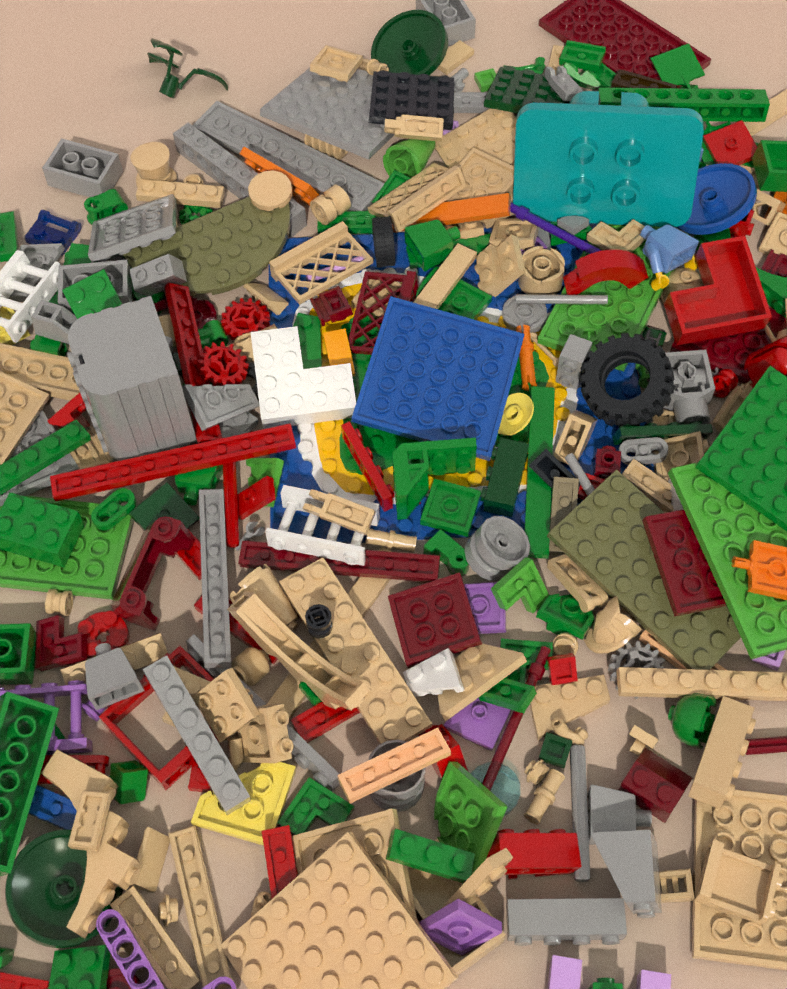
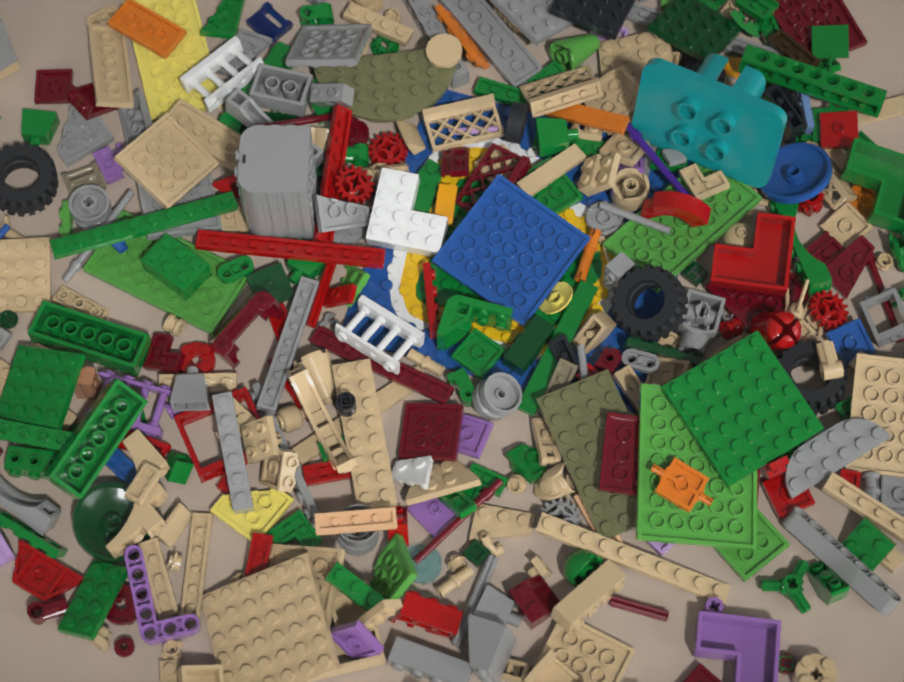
camera: 20 degrees right, 5 degrees up
(92, 294) = (276, 102): green plate -> none
(235, 752) = (256, 475): tan arm -> none
(332, 203) = (489, 75): tan wheel -> none
(341, 512) = (394, 330): tan hinge -> none
(415, 127) = (584, 30): tan hinge -> none
(521, 583) = (502, 427): bright green plate -> none
(562, 83) = (722, 31): light grey hinge -> none
(562, 669) = (505, 499): red tile -> none
(667, 250) = (732, 207): medium blue torso -> none

